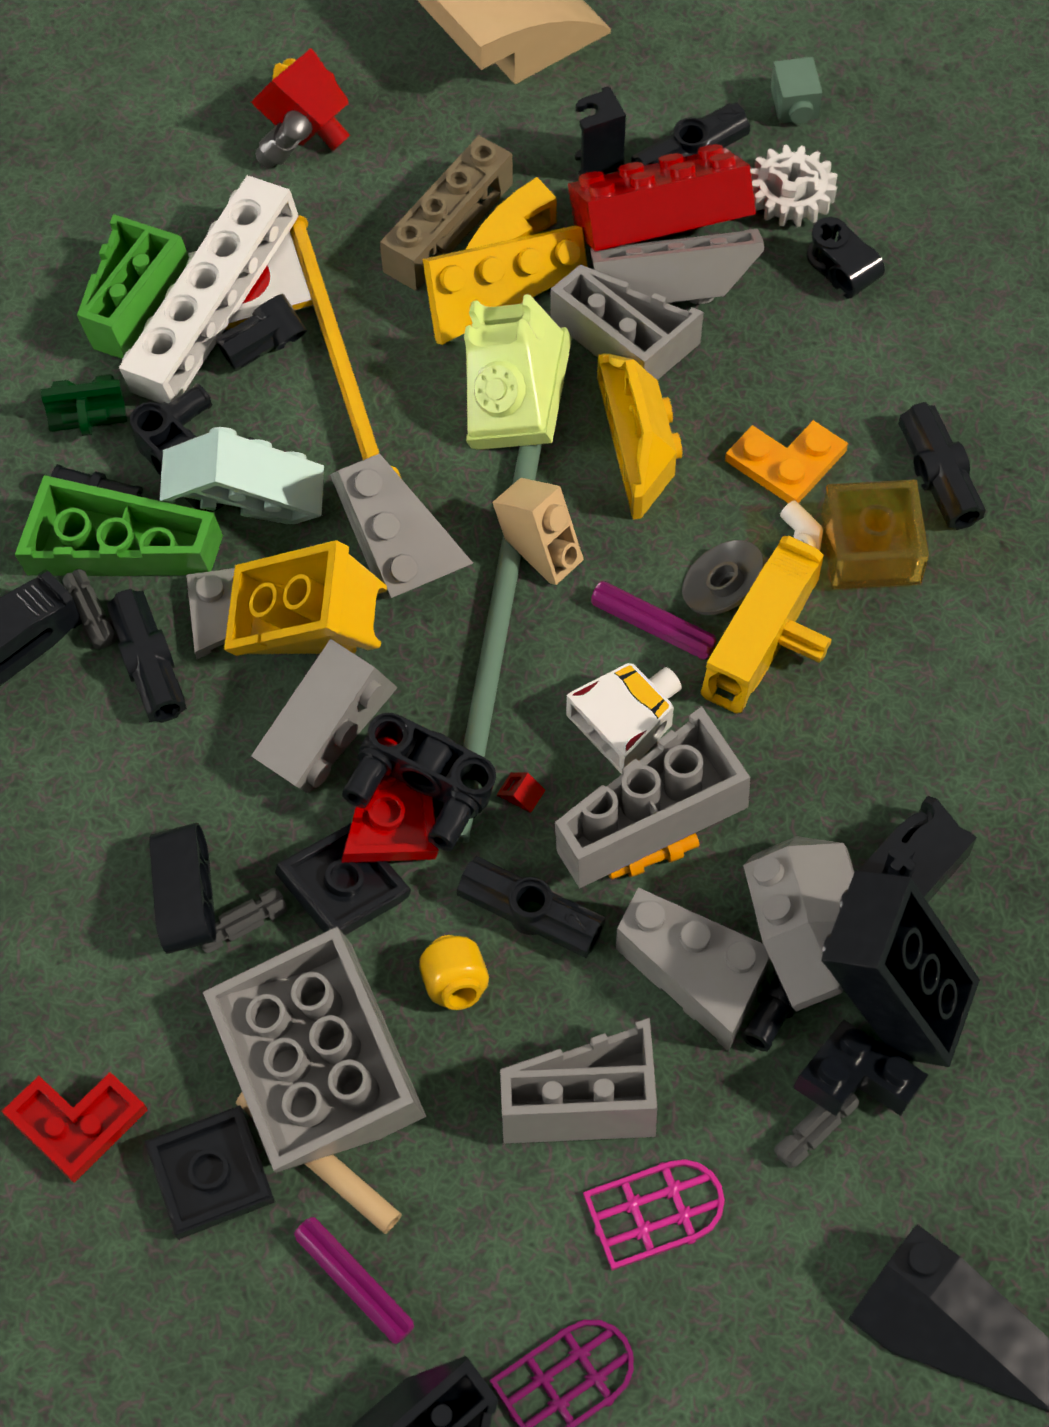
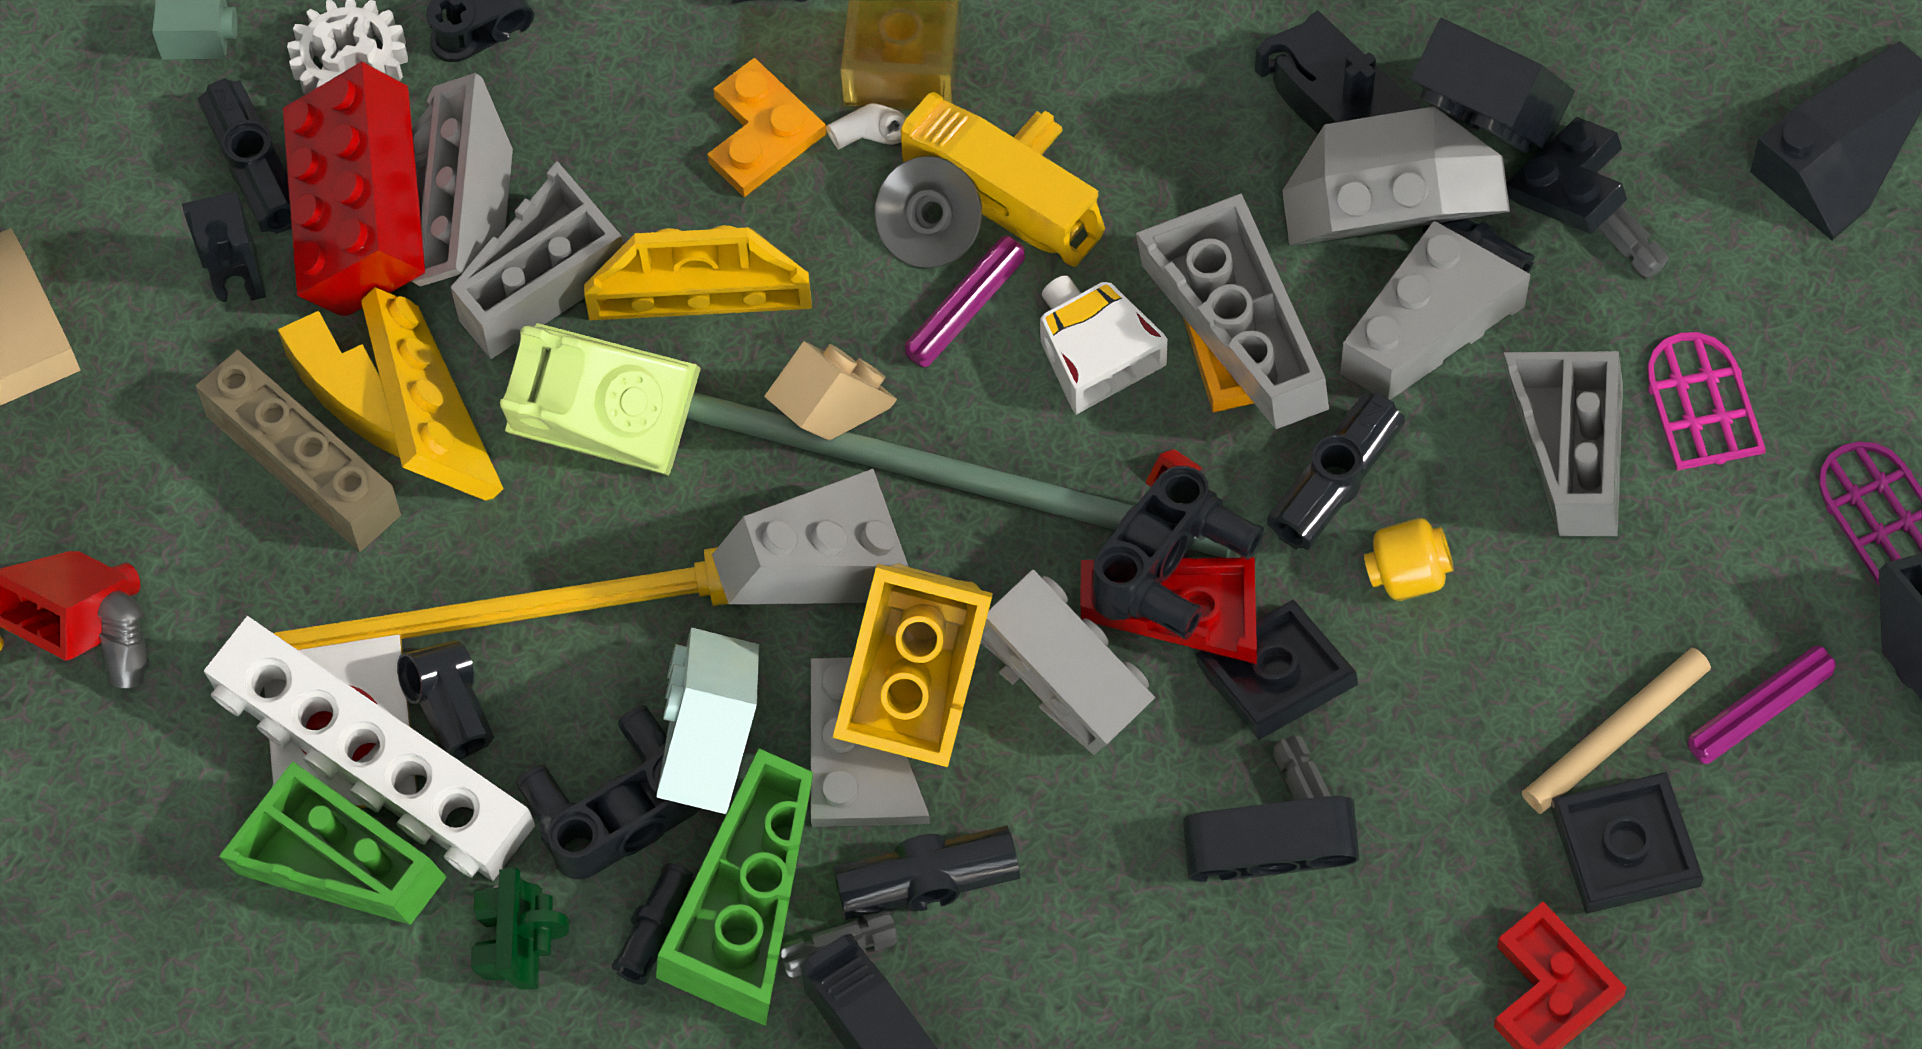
camera: 80 degrees left, 0 degrees up
(313, 1053) = (1500, 705): light grey slope -> none

